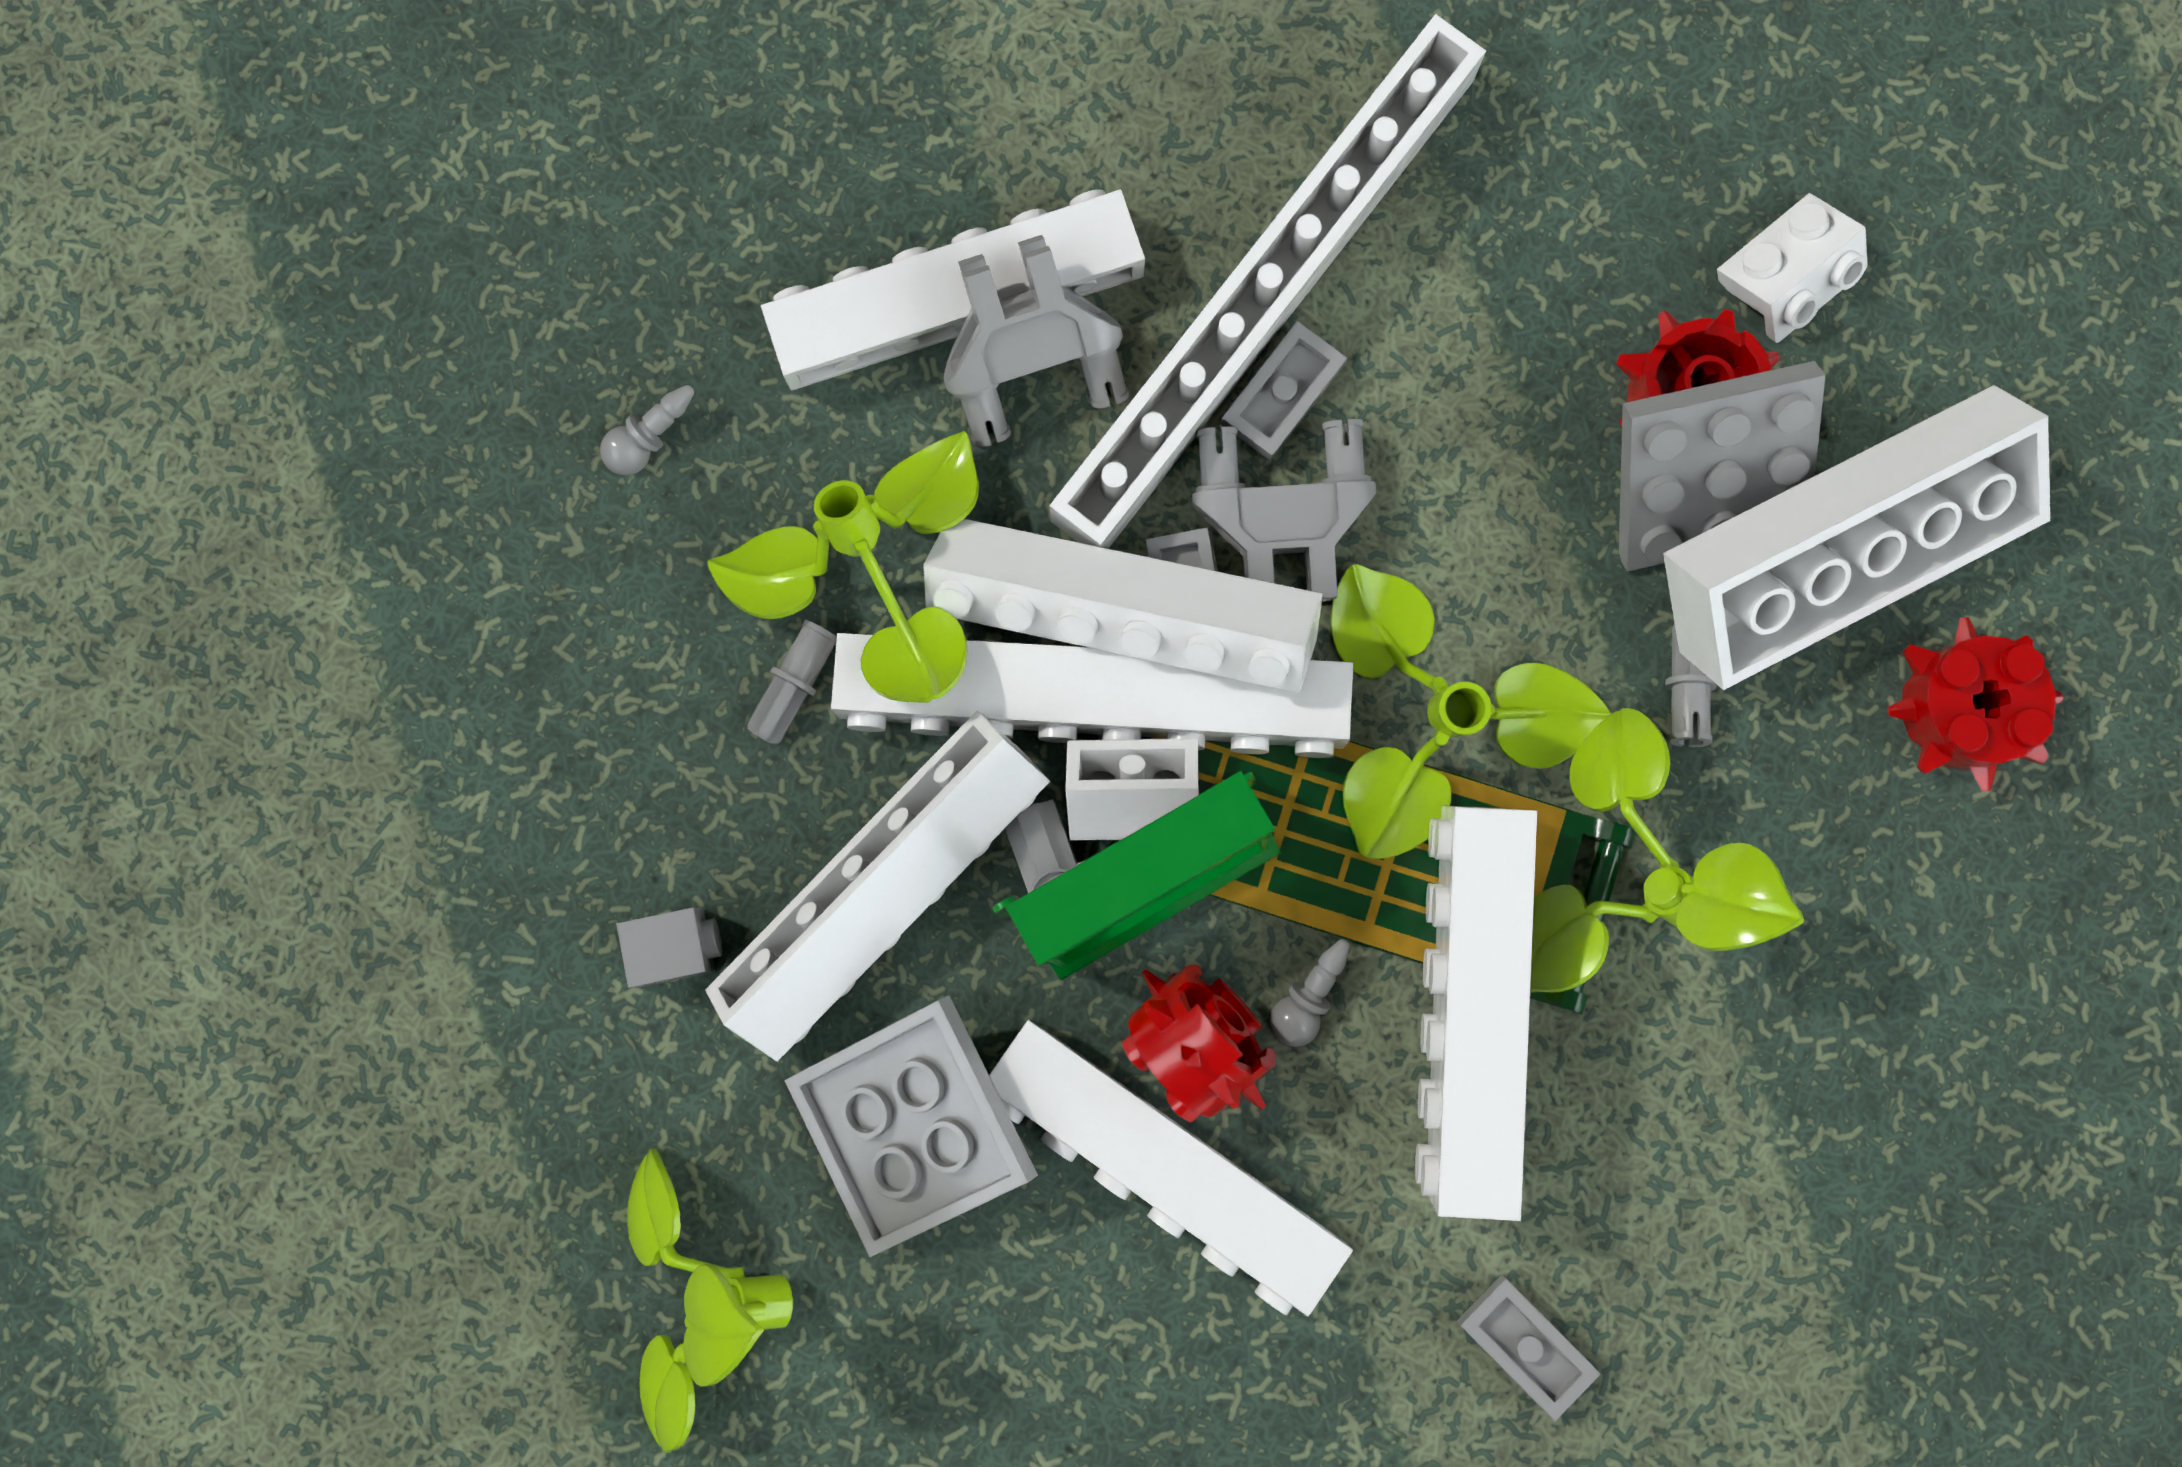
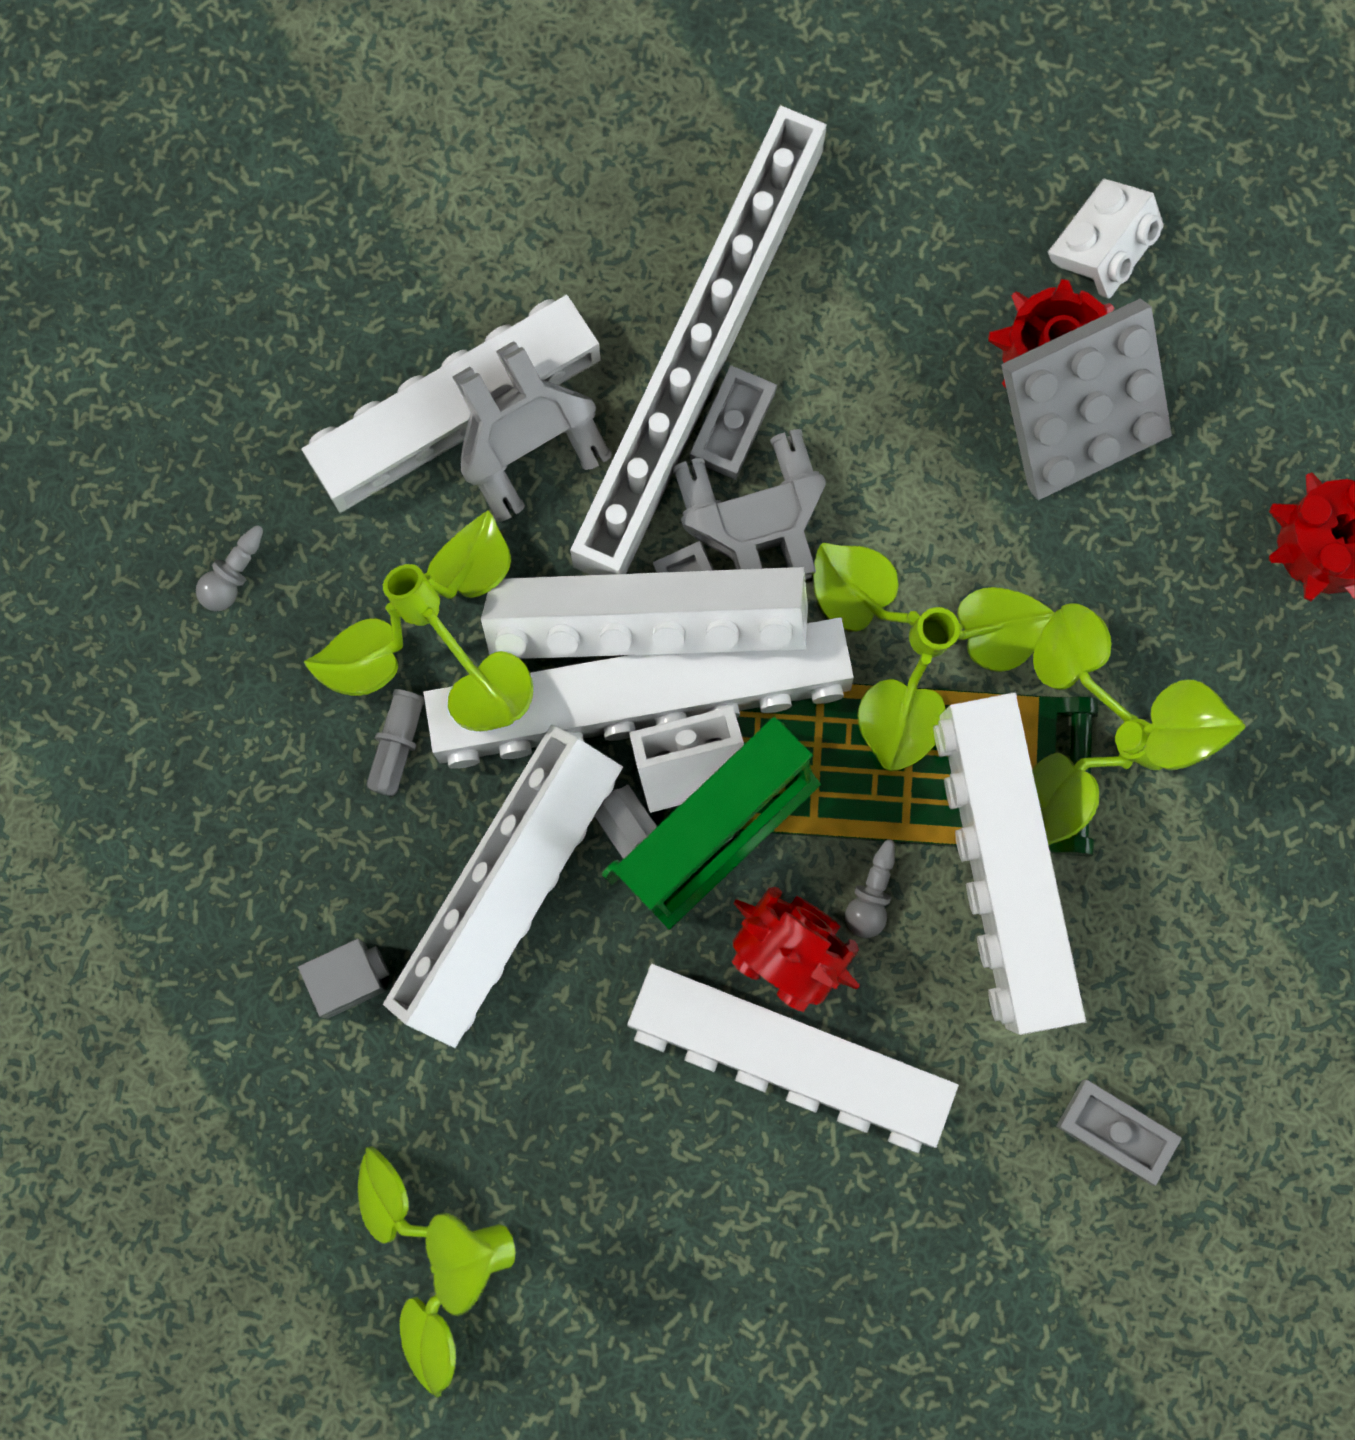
camera: 15 degrees left, 5 degrees down
(911, 1127) = (576, 1073): light grey plate -> none
(1689, 701) = (1111, 575): light grey axle -> none
(1859, 535) = (1210, 427): white brick -> none

